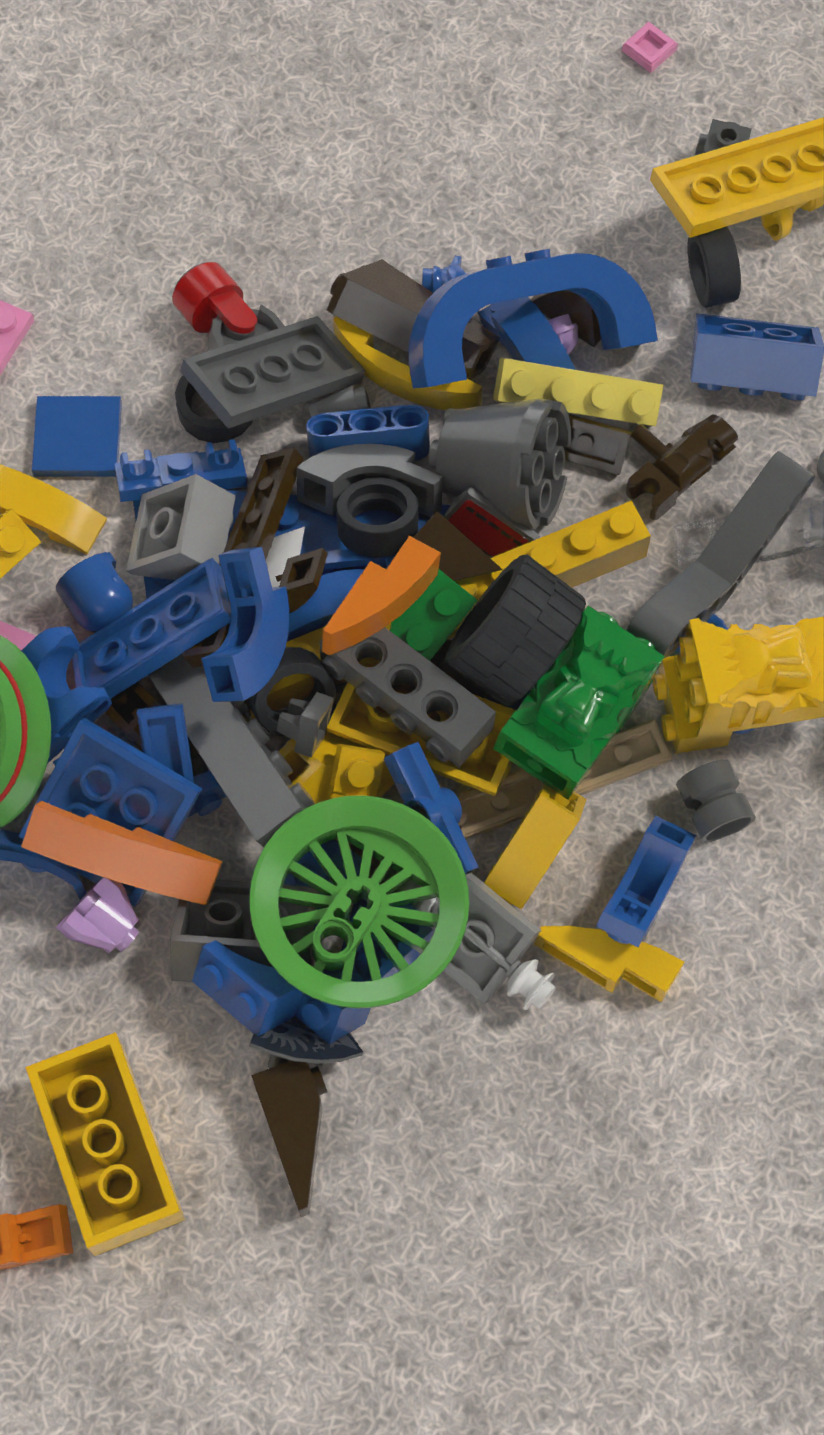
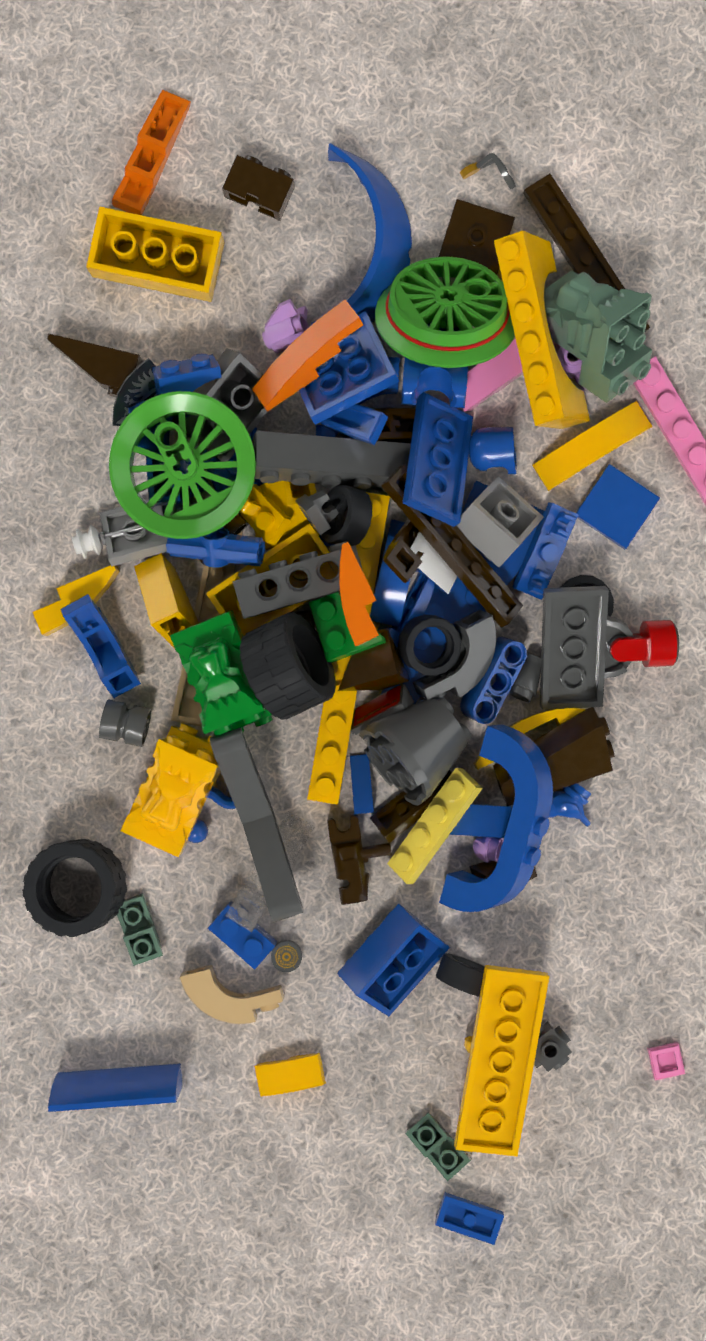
camera: 120 degrees right, 20 degrees up
(256, 628) = (382, 509): blue arch -> none
(596, 498) = (361, 784): none -> blue piece

